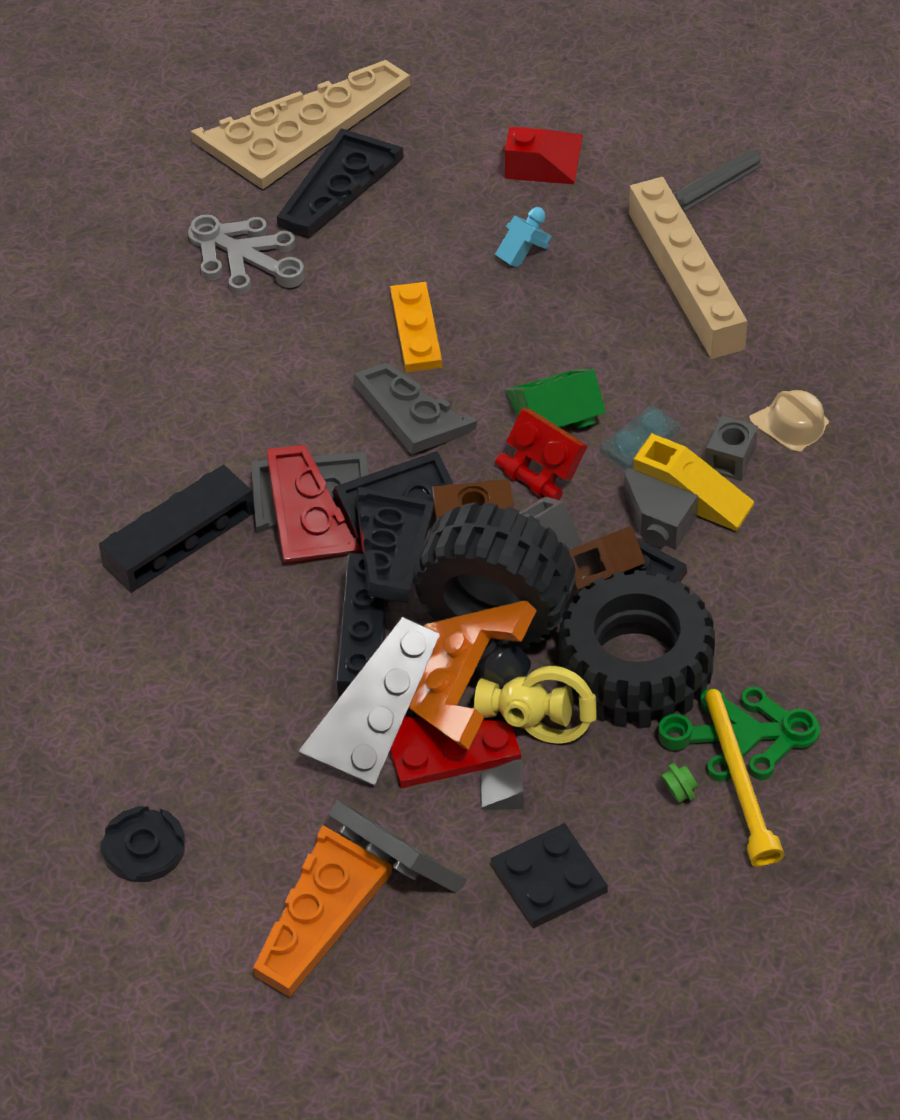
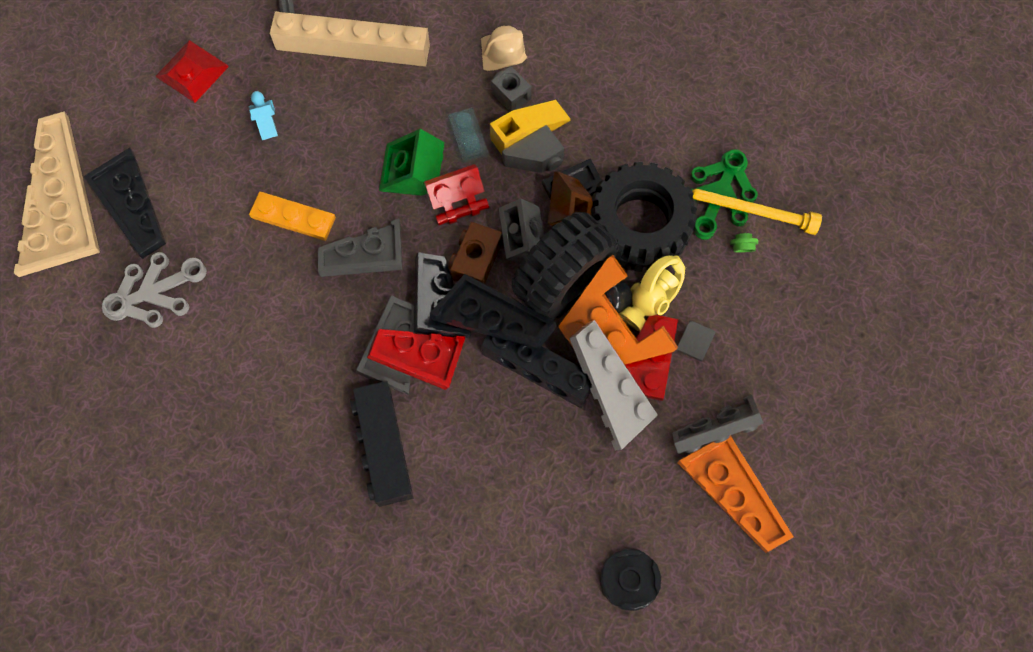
camera: 65 degrees left, 20 degrees up
(549, 875) = (771, 347): black plate -> none

